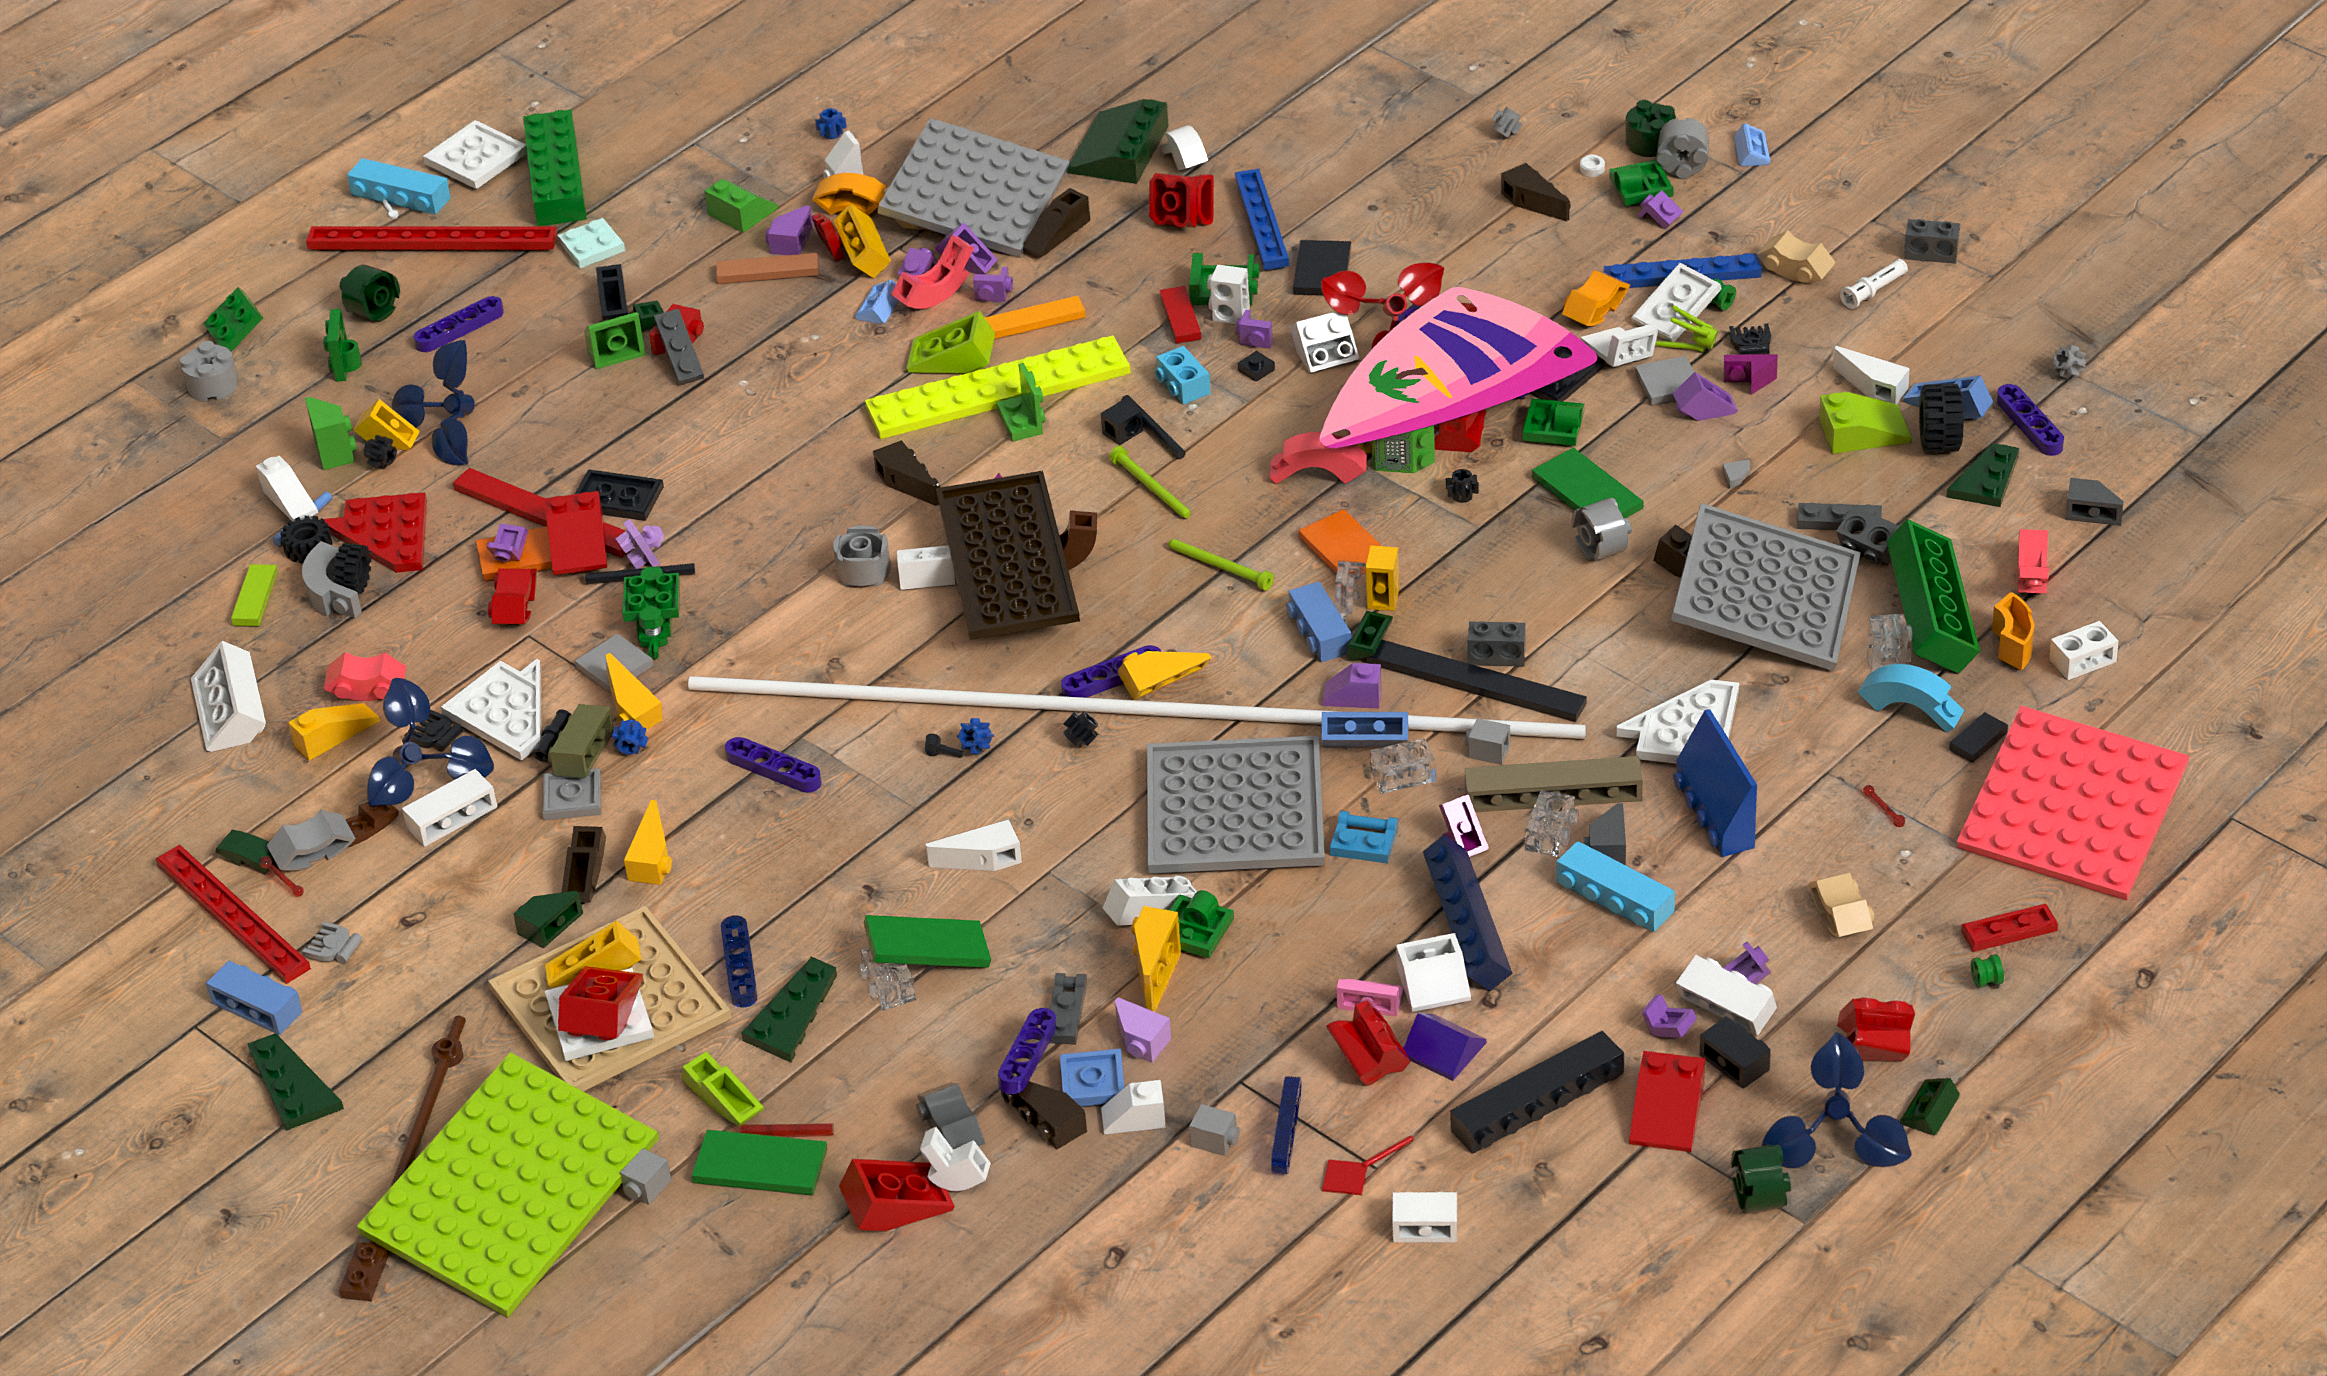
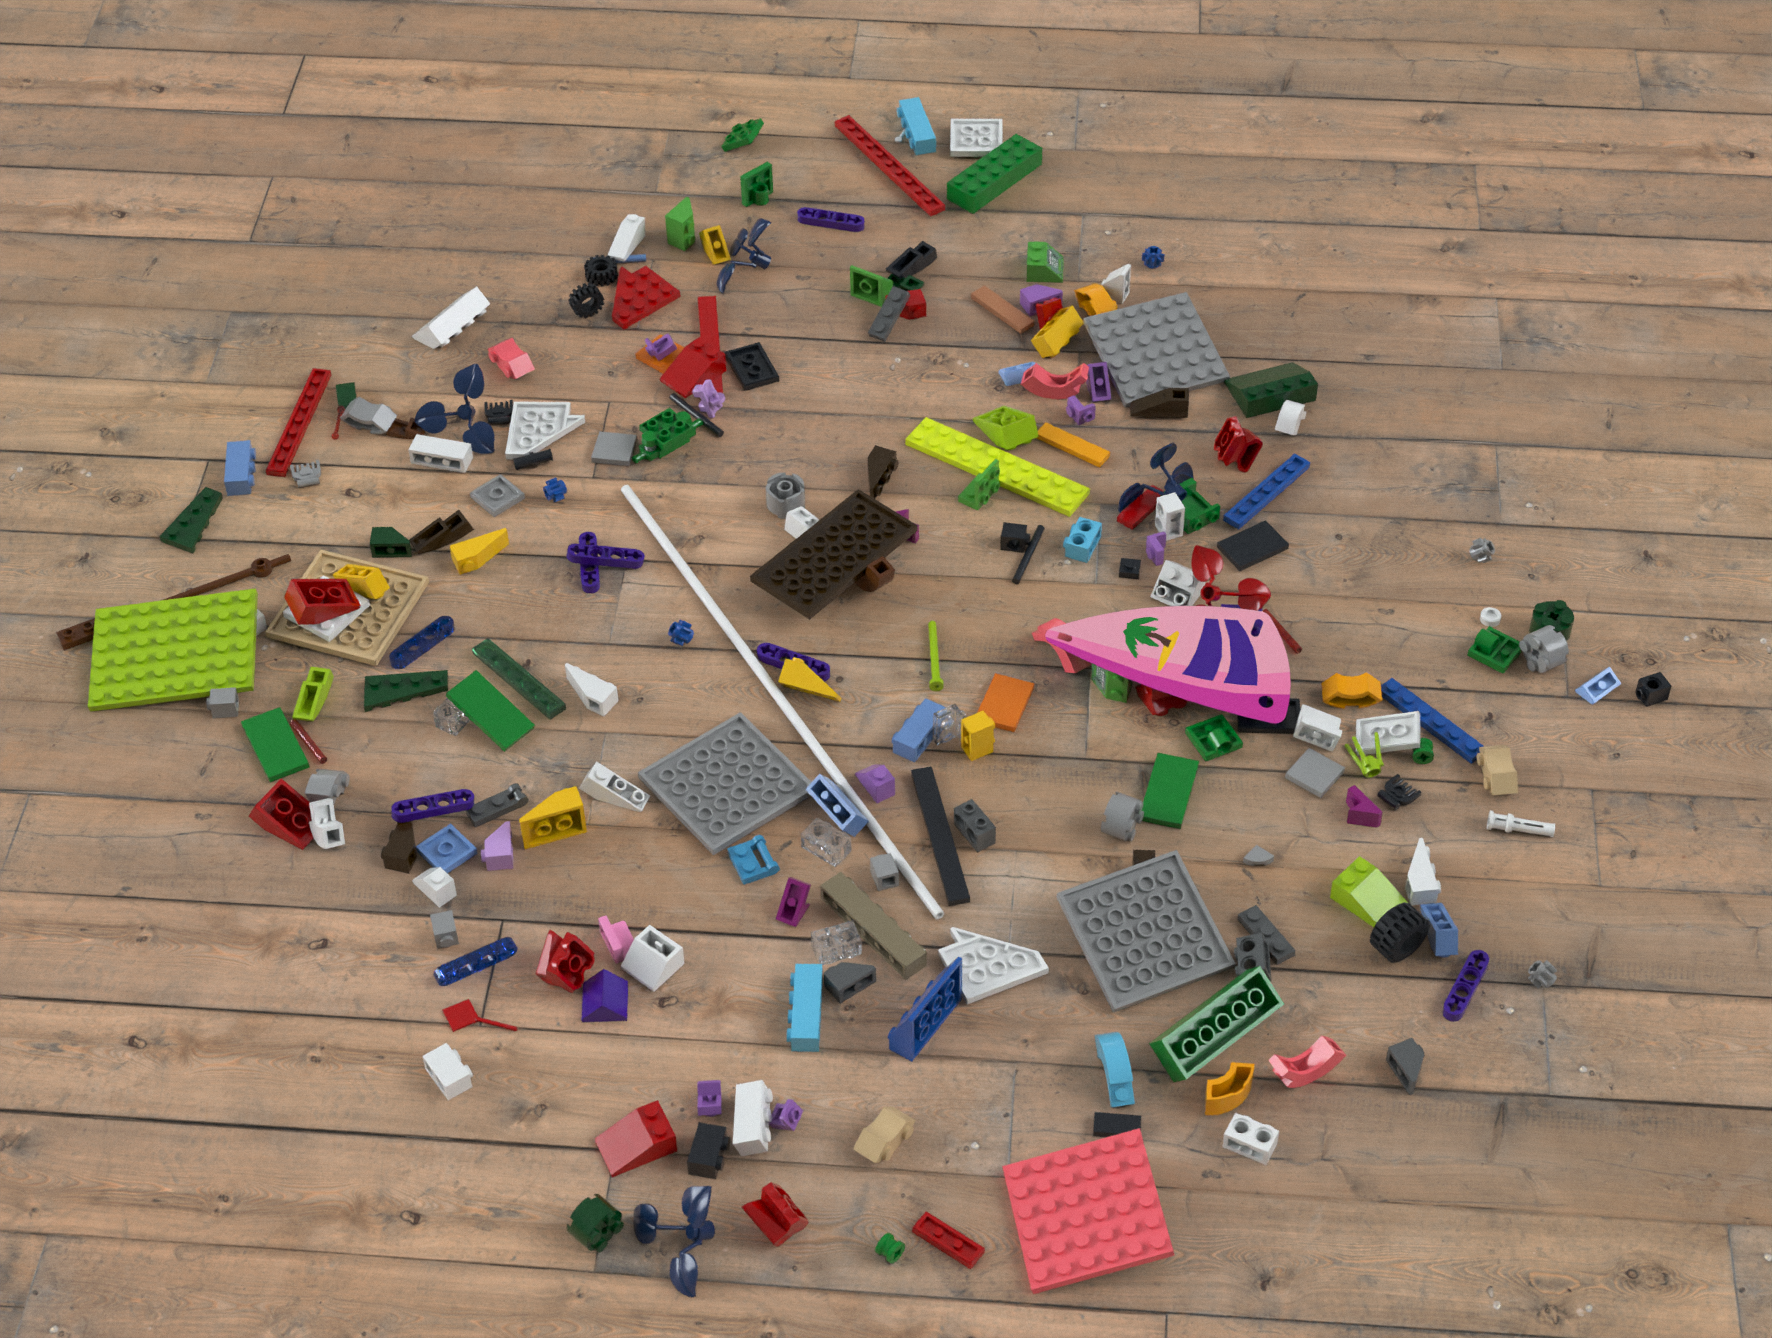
camera: 50 degrees right, 5 degrees up
(209, 371) = (694, 152): light grey brick -> none
(254, 595) = (543, 279): lime tile -> none
(320, 588) = (560, 300): light grey arch -> none
(329, 726) = (452, 362): yellow slope -> none
(369, 292) = (812, 169): dark green brick -> none
(380, 451) = (693, 254): black gear -> none
(512, 594) = (626, 375): red brick -> none
(581, 741) = (532, 472): olive brick -> none
(591, 243) = (951, 227): light aqua plate -> none
(630, 696) = (583, 470): yellow slope -> none
(787, 742) = (605, 556): none -> dark purple beam
(892, 901) = (519, 678): none -> clear green plate
(892, 1132) = (326, 785): none -> light grey brick
(918, 261) = (1065, 365): medium lavender bracket -> none
(934, 746) = (663, 620): black hand -> none
(949, 1112) = (362, 804): dark grey brick -> none
(1081, 728) = (727, 675): black gear -> none
(1119, 456) = (984, 555): lime bar -> none
(1199, 269) = (1180, 474): none -> dark blue plant
(1201, 922) = (608, 823): green plate -> none
(1368, 635) = (927, 759): dark green slope -> none
(1462, 485) = (1108, 727): black gear -> none
(1467, 912) = (717, 945): dark blue brick -> none
(1532, 192) = (1426, 601): dark brown slope -> none
(1537, 1092) = (595, 1068): black brick -> none
(1661, 209) = (1478, 674): medium lavender bracket -> none
(1703, 399) = (1308, 800): medium lavender slope -> none
(1797, 113) = (1653, 689): none -> black brick
(1888, 641) = (1146, 1024): clear brick -> none
(1898, 820) = (1000, 1125): clear red hinge -> none
(1931, 1105) = (746, 1284): dark green slope -> none
(1932, 241) = (1592, 831): dark grey brick -> none
(1987, 476) = (1385, 993): dark green wing -> none

